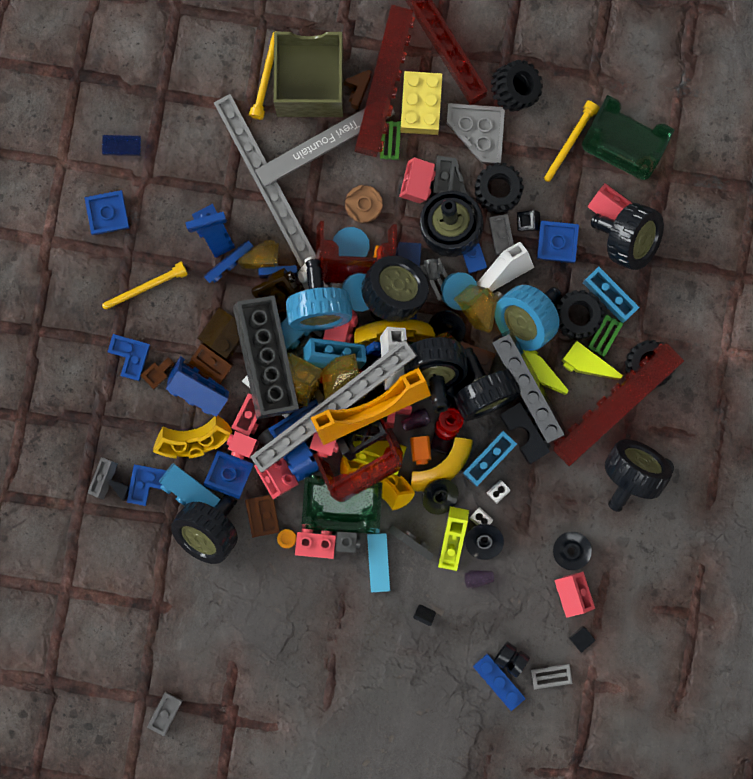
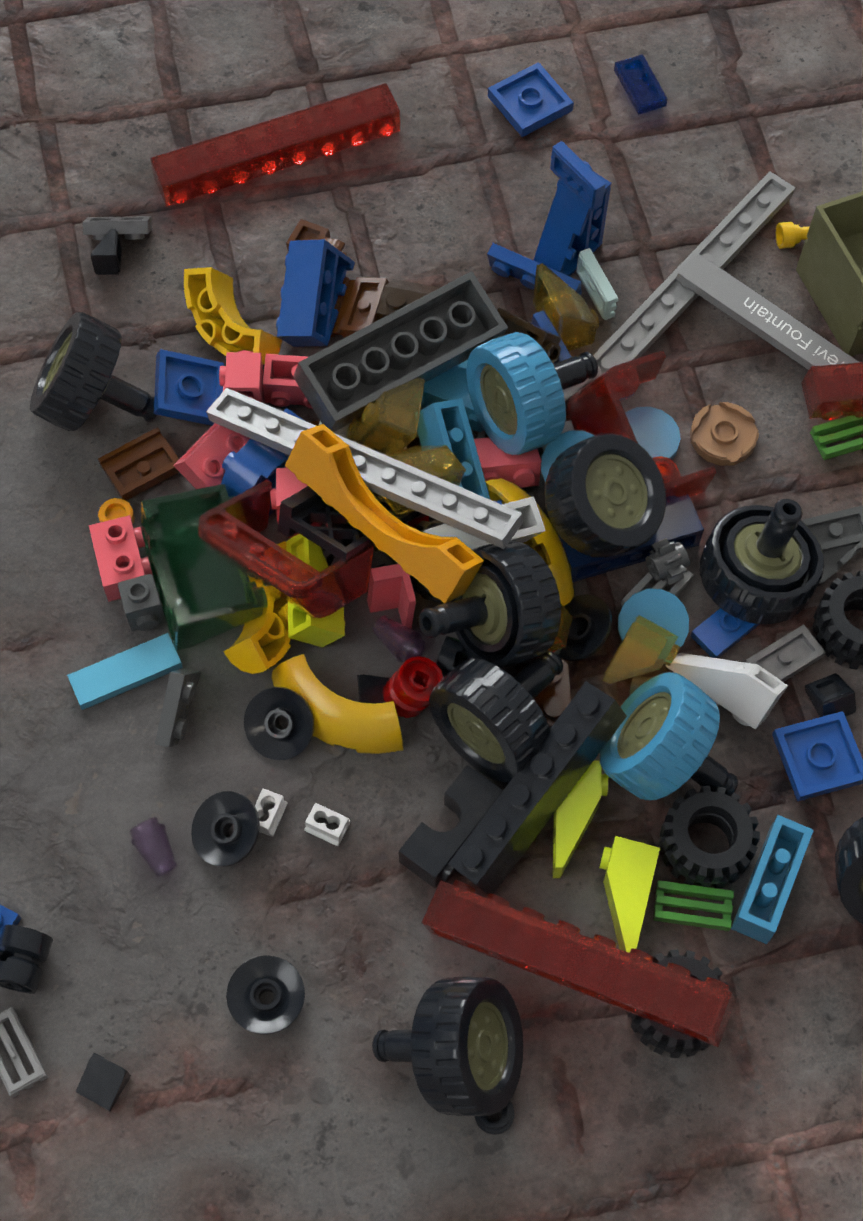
camera: 65 degrees right, 20 degrees down
(82, 369) = (276, 144): none -> clear red brick
(134, 353) = (330, 204): blue plate -> none
(141, 481) = (134, 279): blue plate -> none
(178, 271) = (488, 217): yellow piece -> none
(186, 487) = (144, 332): dark azure brick -> none
(249, 230) = (596, 284): none -> light aqua tile
(417, 180) = (813, 487): coral brick -> none
(420, 450) = (347, 655): orange brick -> none
(424, 615) = (54, 778): black slope -> none
(453, 538) = (230, 767): neon yellow slope -> none
(489, 458) = (379, 778): dark azure brick -> none
(574, 594) = (183, 1028): coral brick -> none

